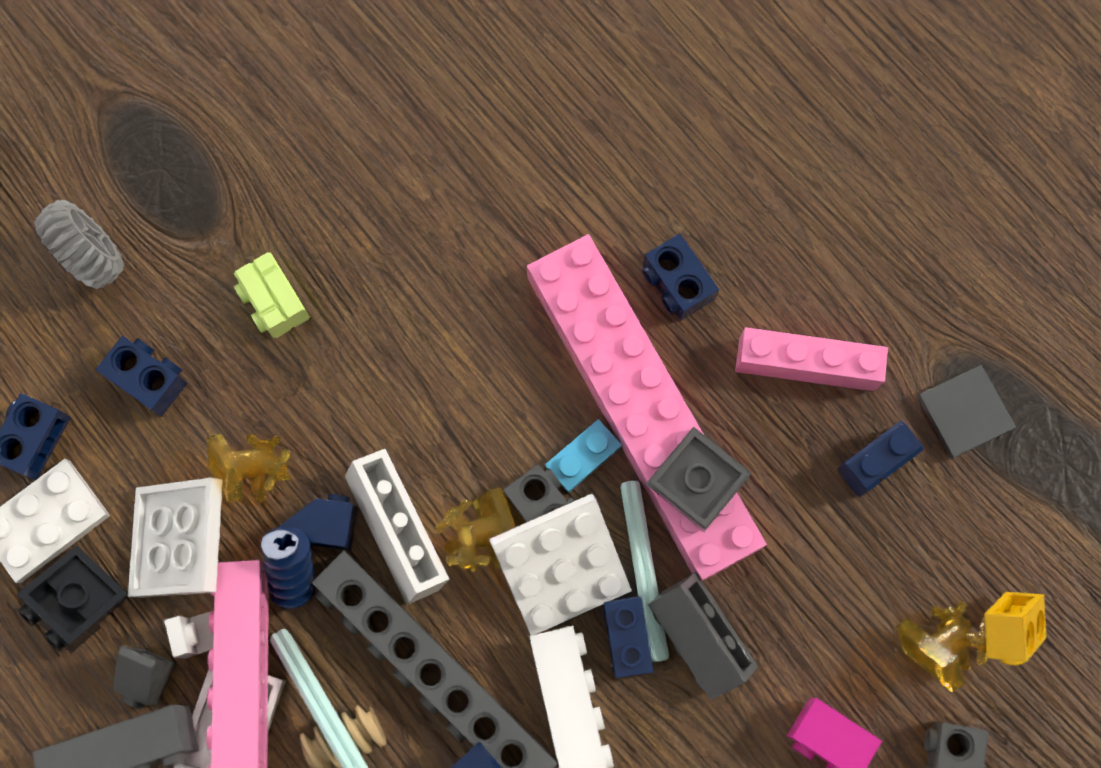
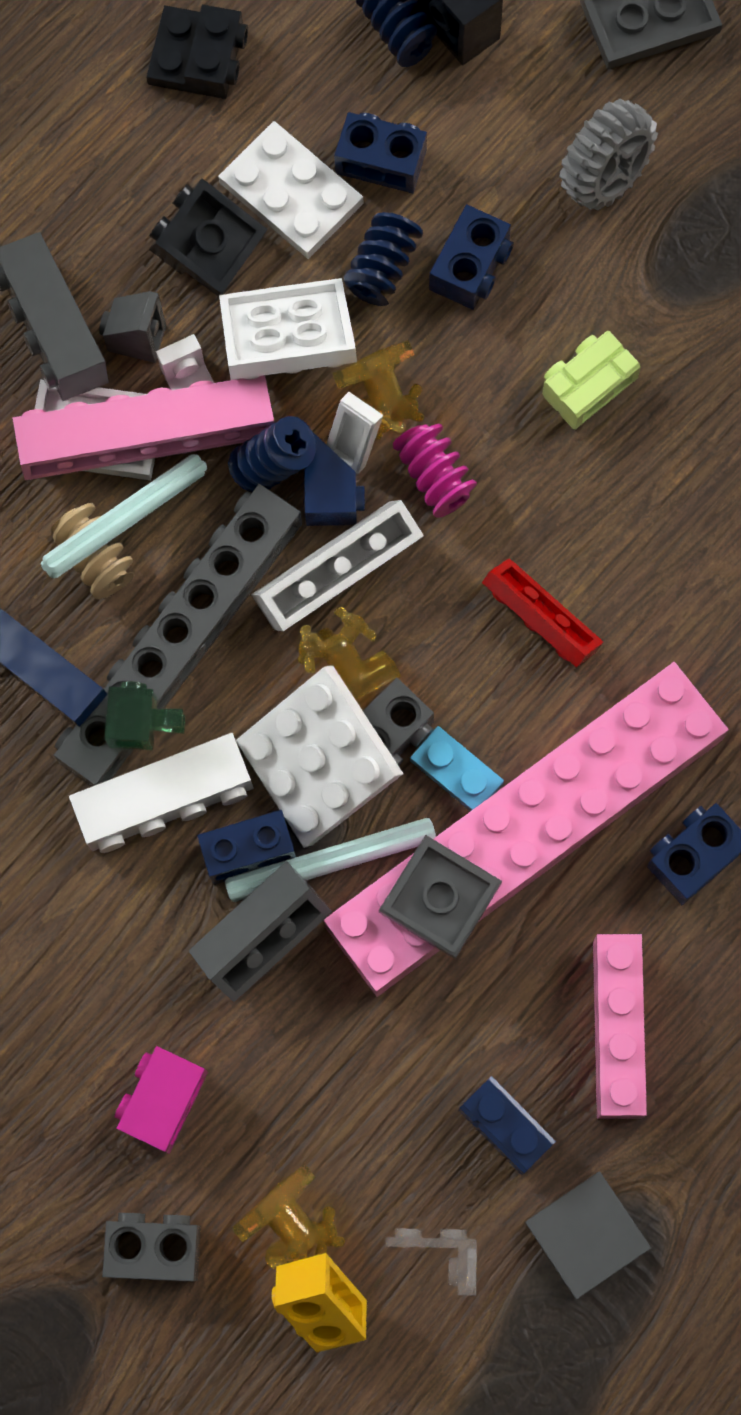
camera: 85 degrees right, 0 degrees up
(124, 451) = (379, 256): none -> dark blue piece
(280, 493) = (354, 431): none -> white tile
(323, 432) = (434, 468): none -> dark pink piece
(463, 366) = (542, 612): none -> red plate
(506, 719) = (134, 717): none -> clear green brick
(988, 511) = (460, 1269): none -> clear bracket

